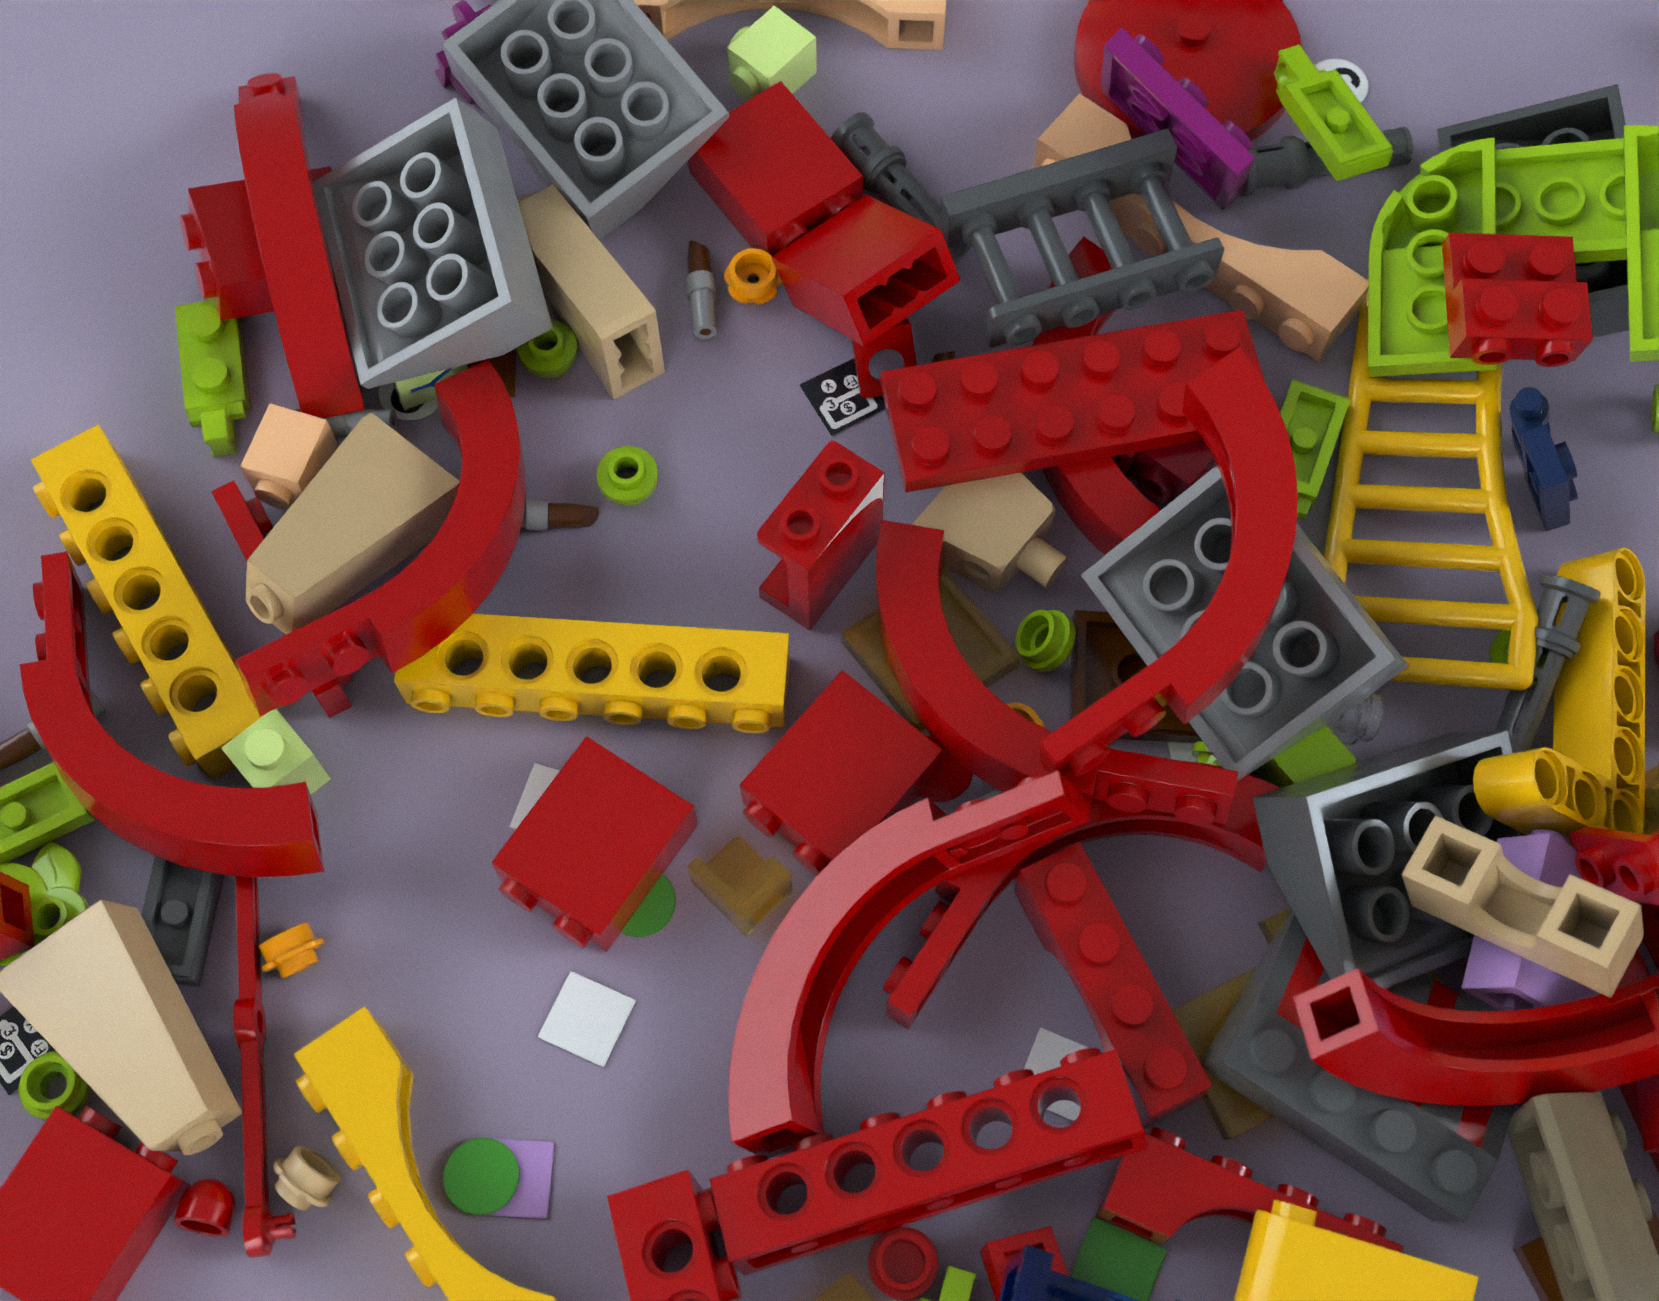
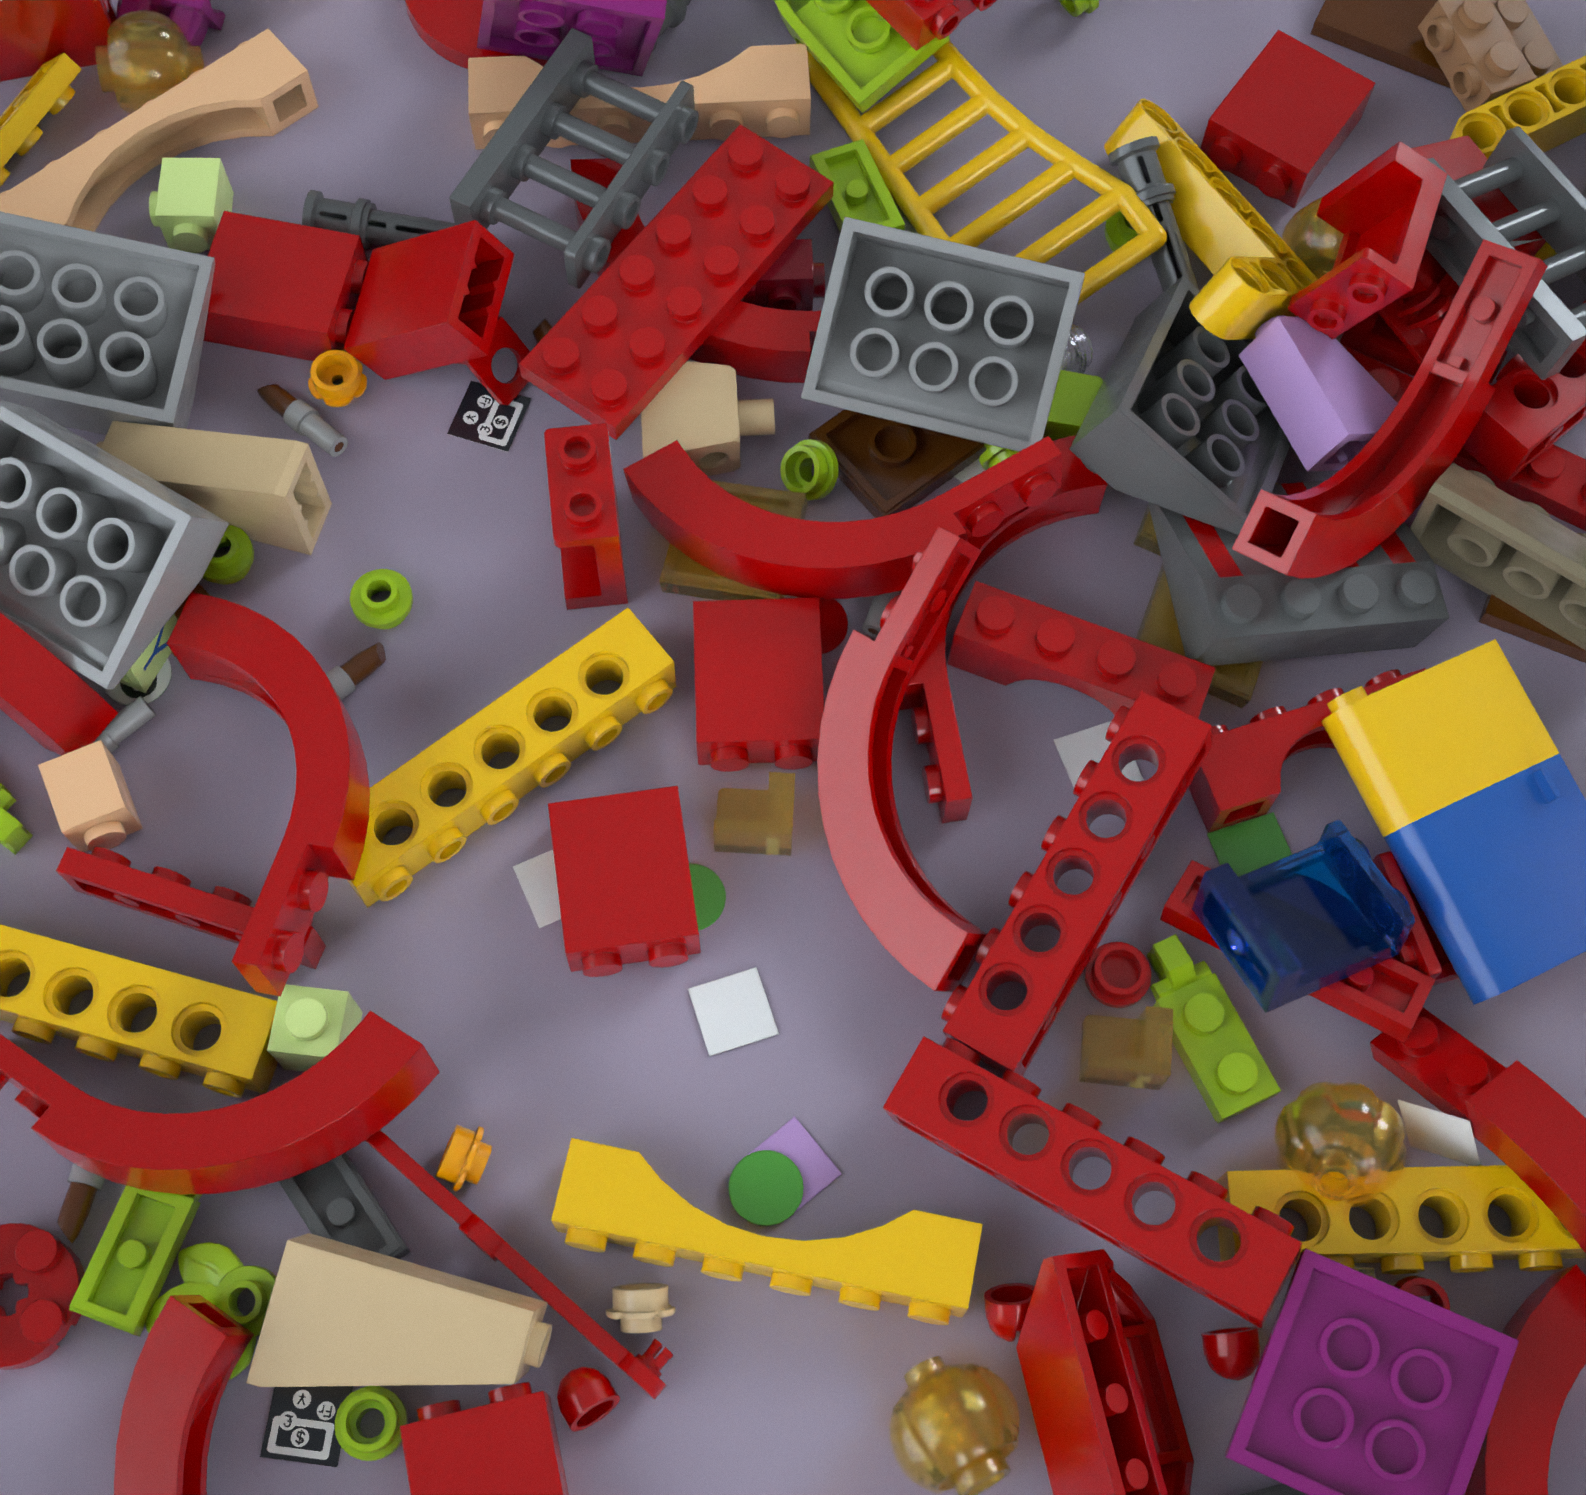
camera: 45 degrees left, 0 degrees up
(348, 526) = (205, 801): tan slope -> none
(1257, 465) = (906, 231): red arch -> none
(1546, 466) = (1036, 80): dark blue plate -> none
(1566, 928) = (1359, 361): tan arch -> none

